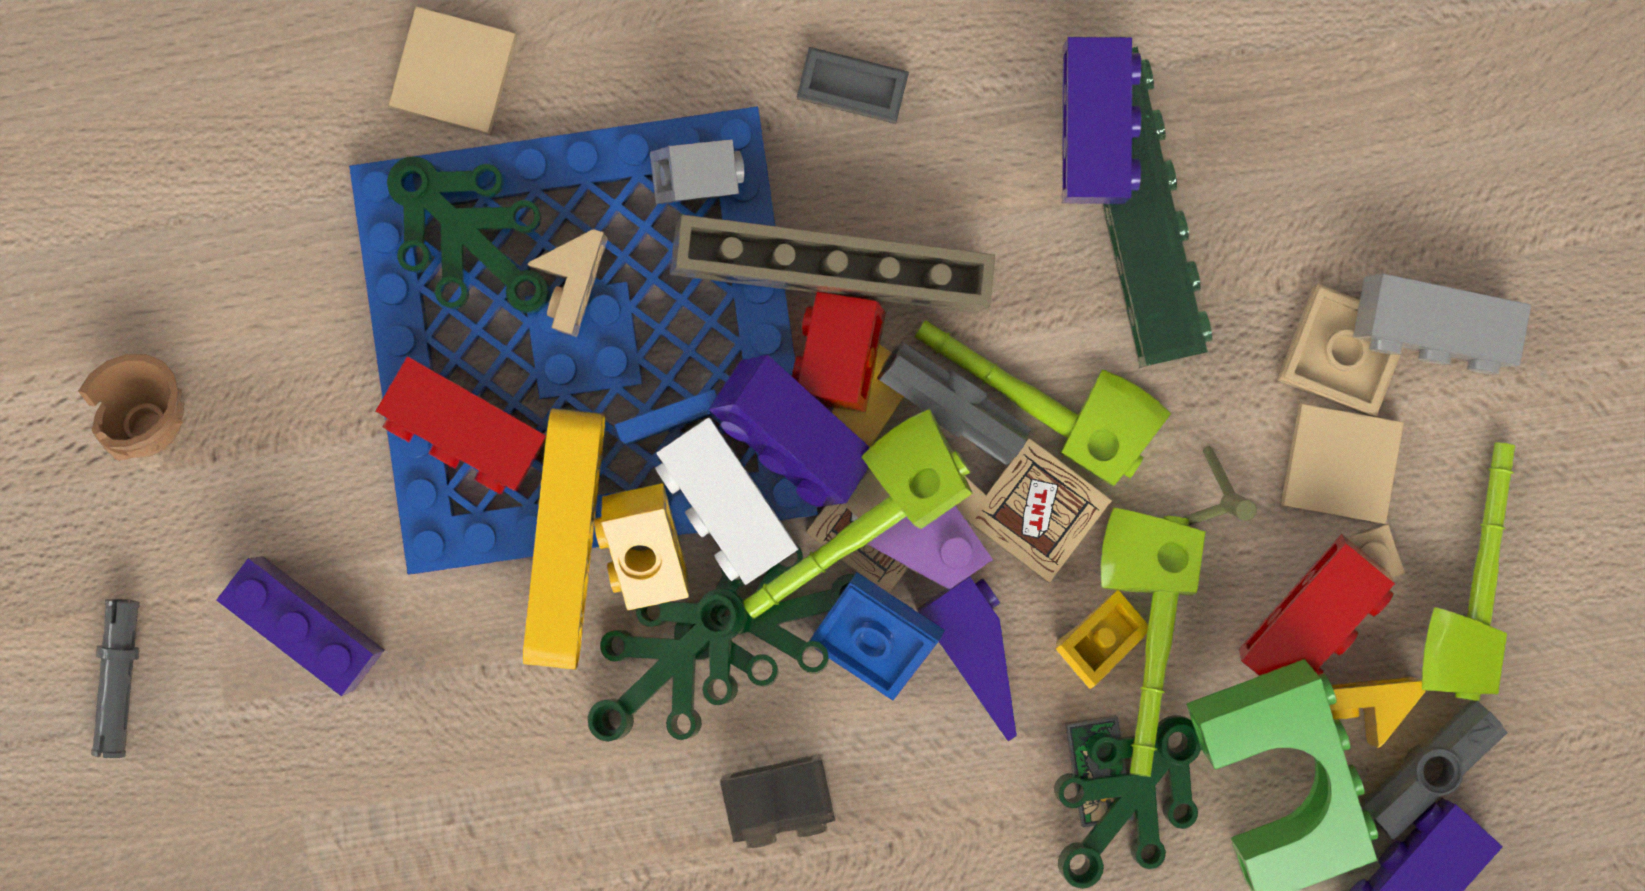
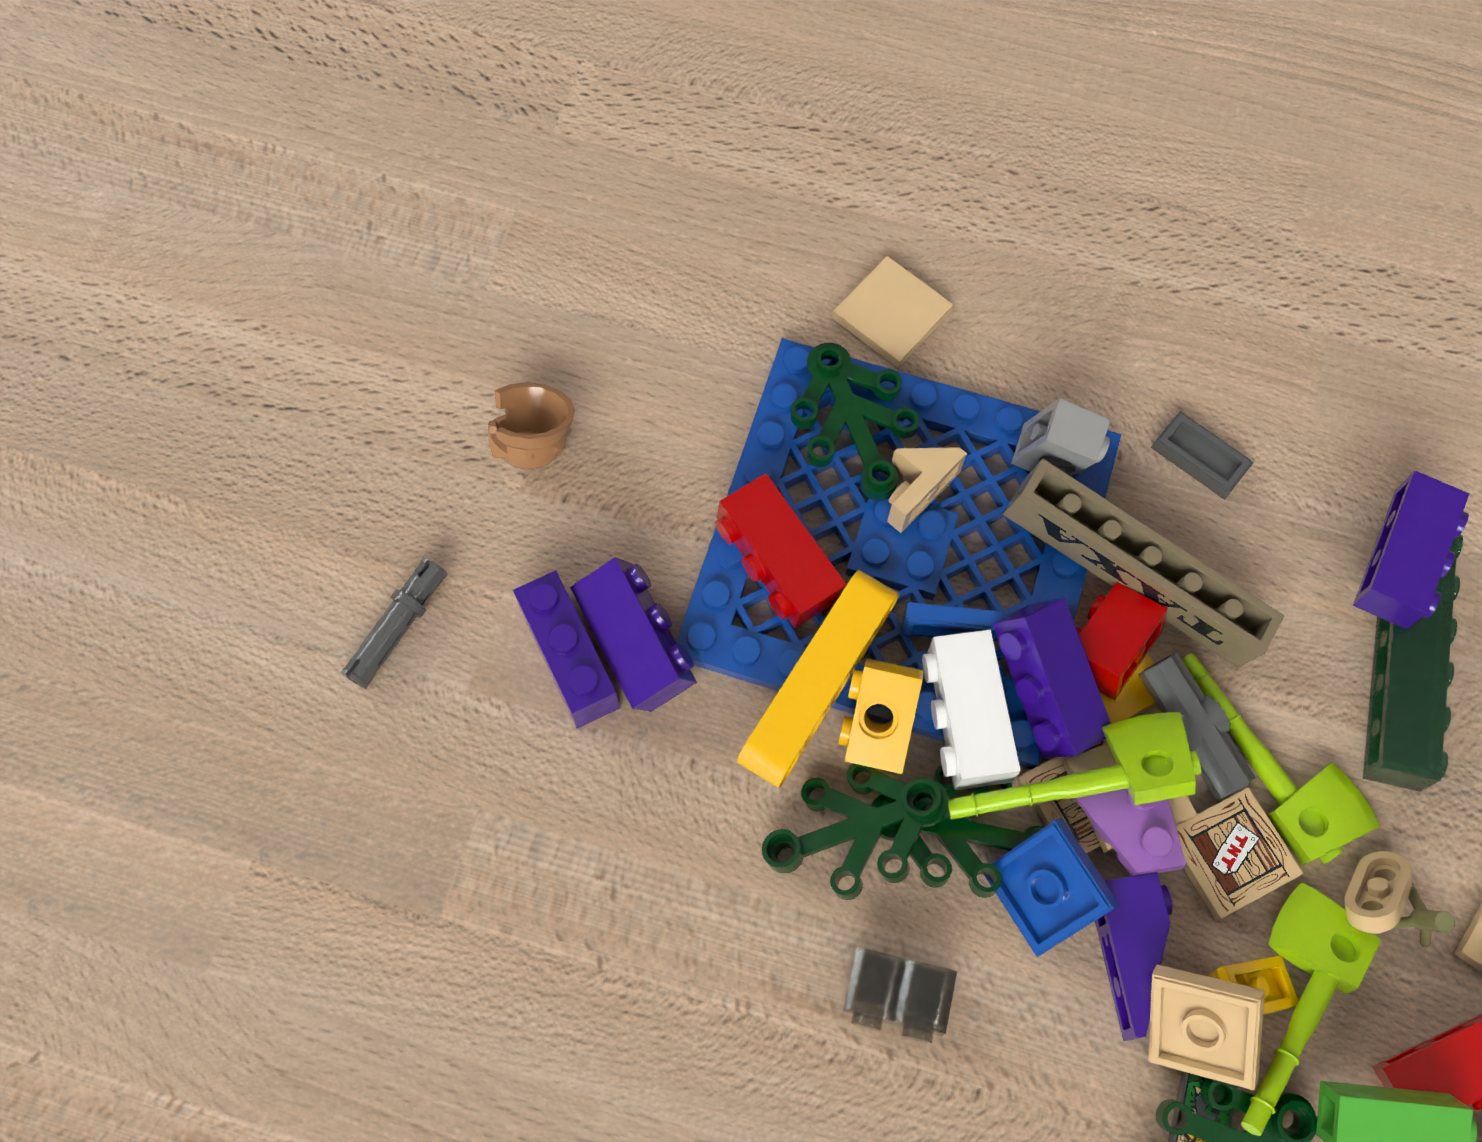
camera: 30 degrees right, 20 degrees down
(359, 578) = (634, 634): none -> dark purple brick
(1065, 705) = (1206, 1026): none -> tan plate
(1184, 493) = (1378, 892): none -> tan plate

